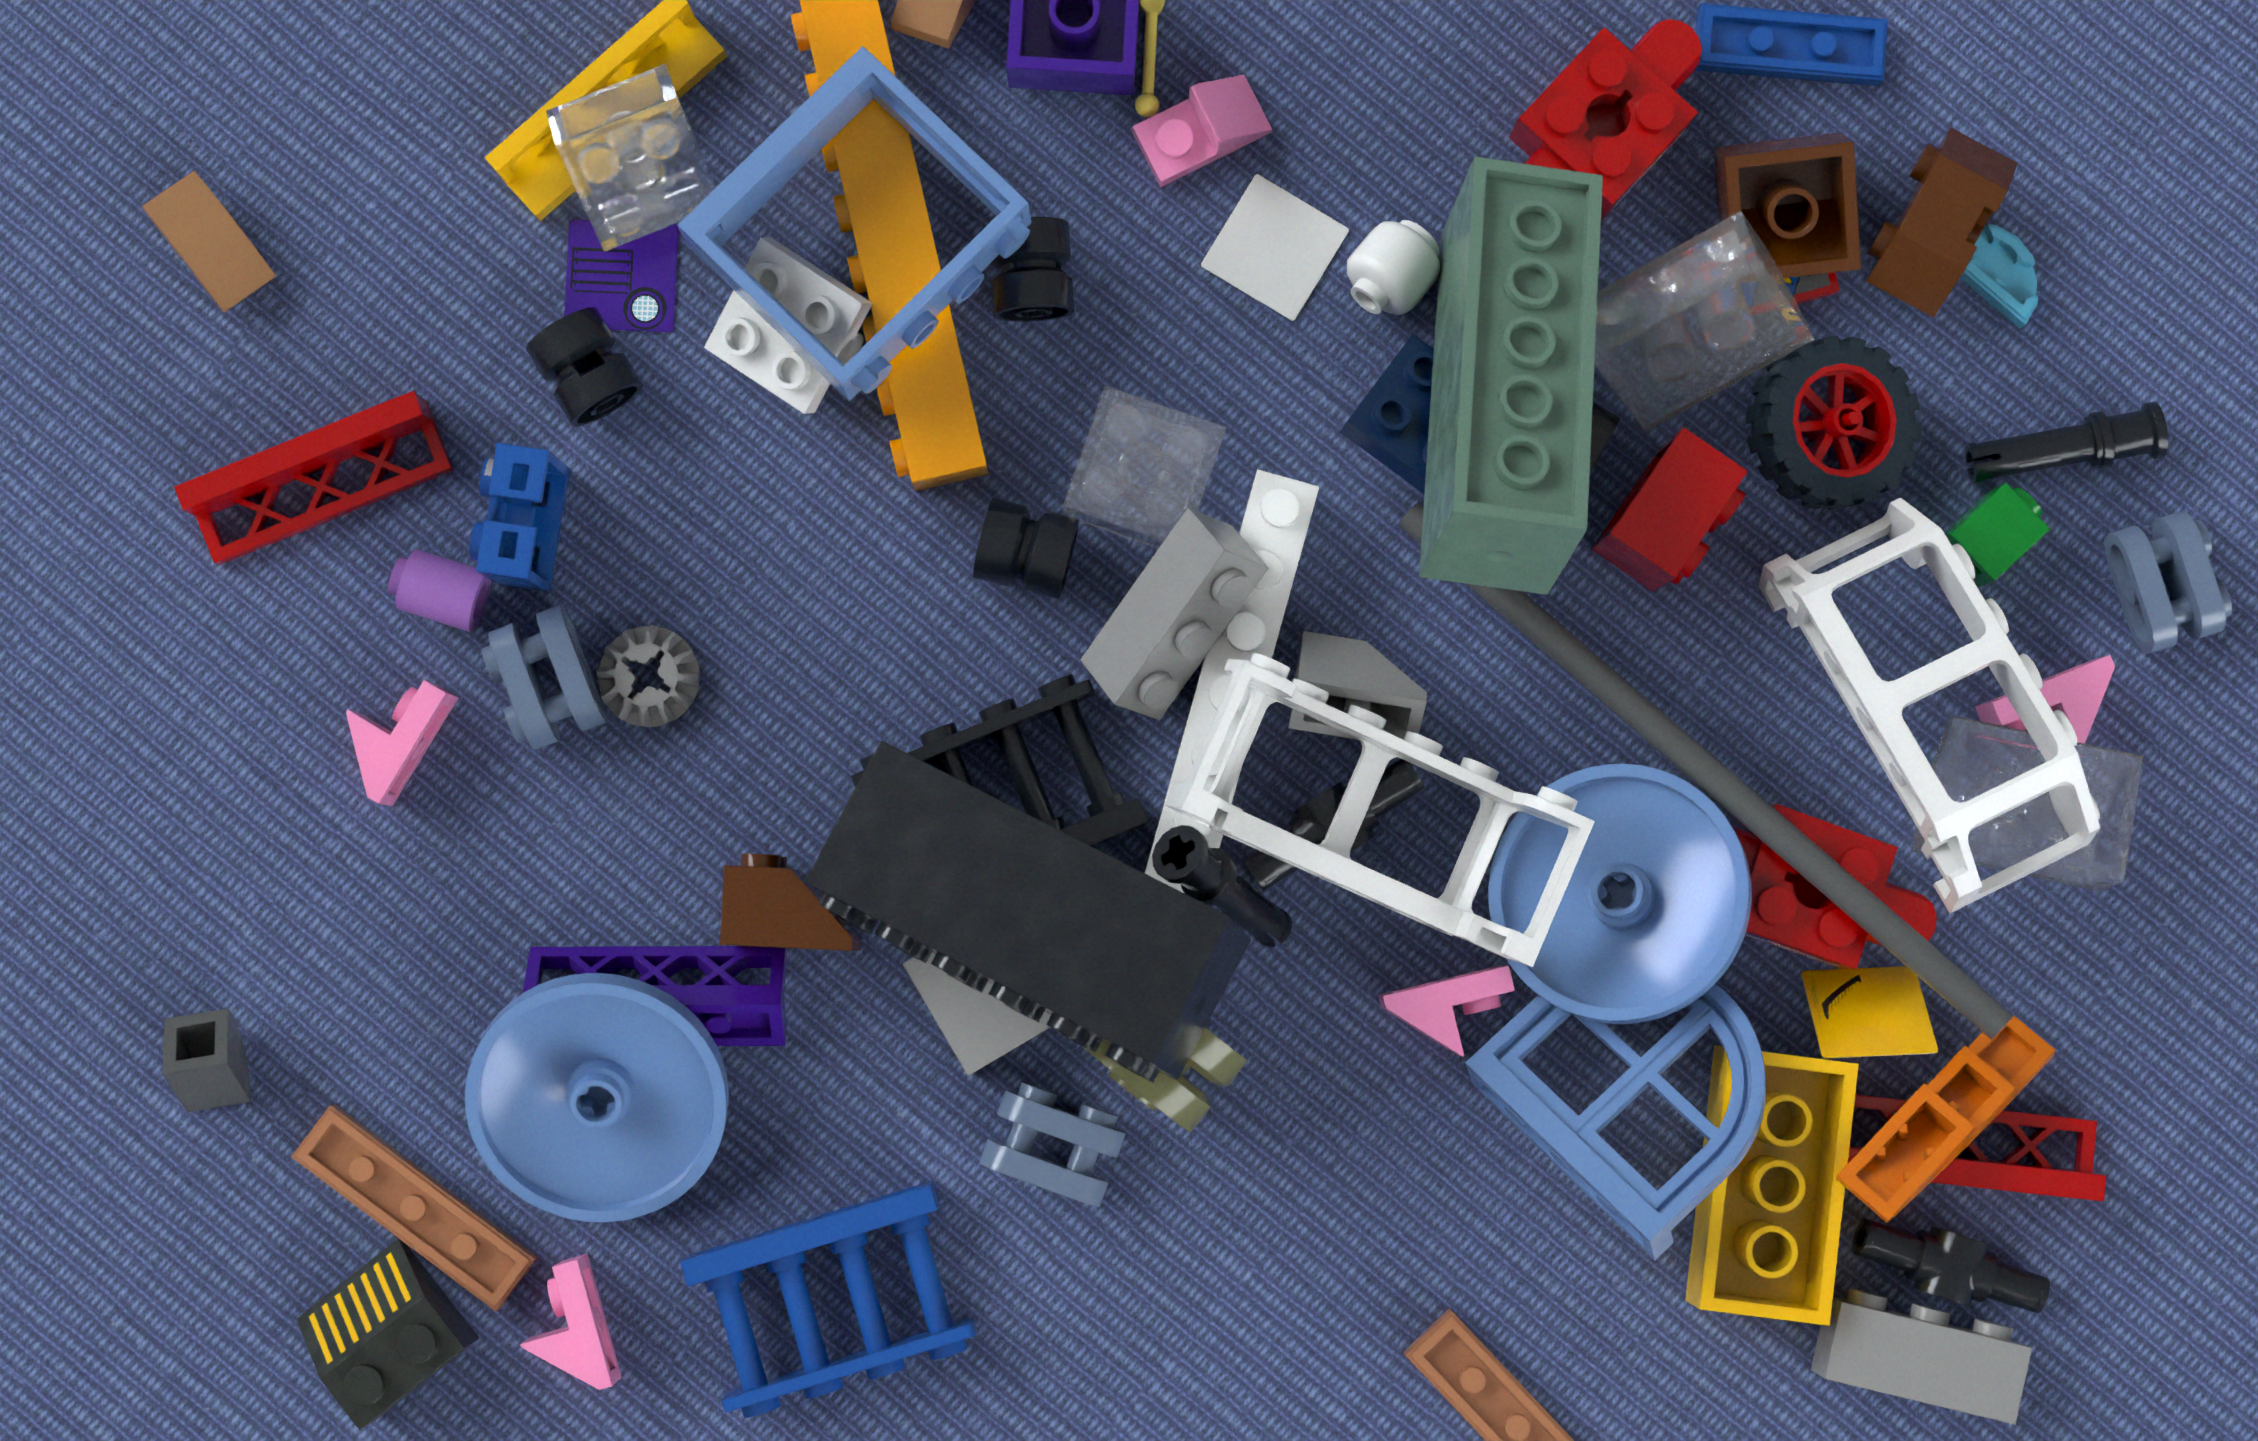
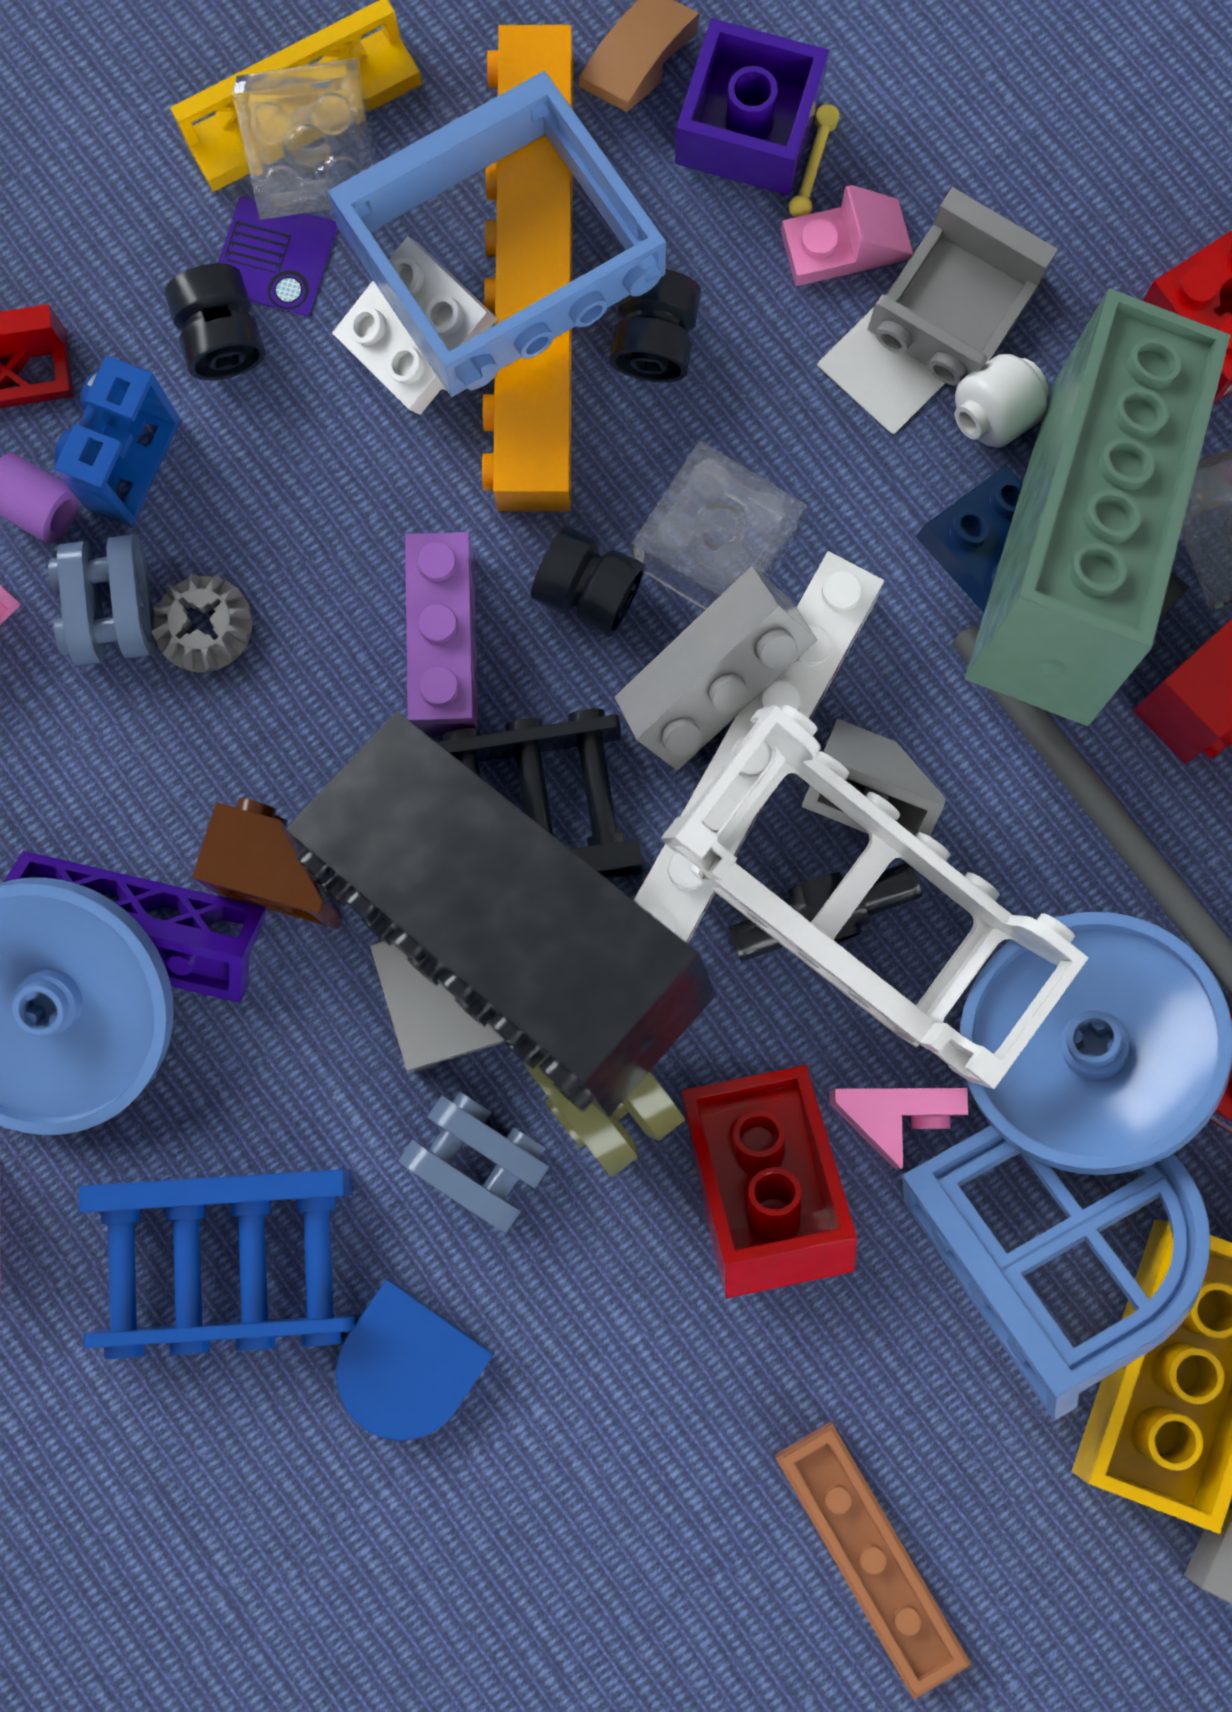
camera: 25 degrees right, 5 degrees down
(893, 635) = (441, 632): none -> medium lavender brick
(1034, 1355) = (406, 1366): none -> blue tile
(1211, 878) = (671, 899): black pin -> none
(1328, 162) = (961, 289): none -> light grey panel
(1338, 1096) = (769, 1182): none -> red slope

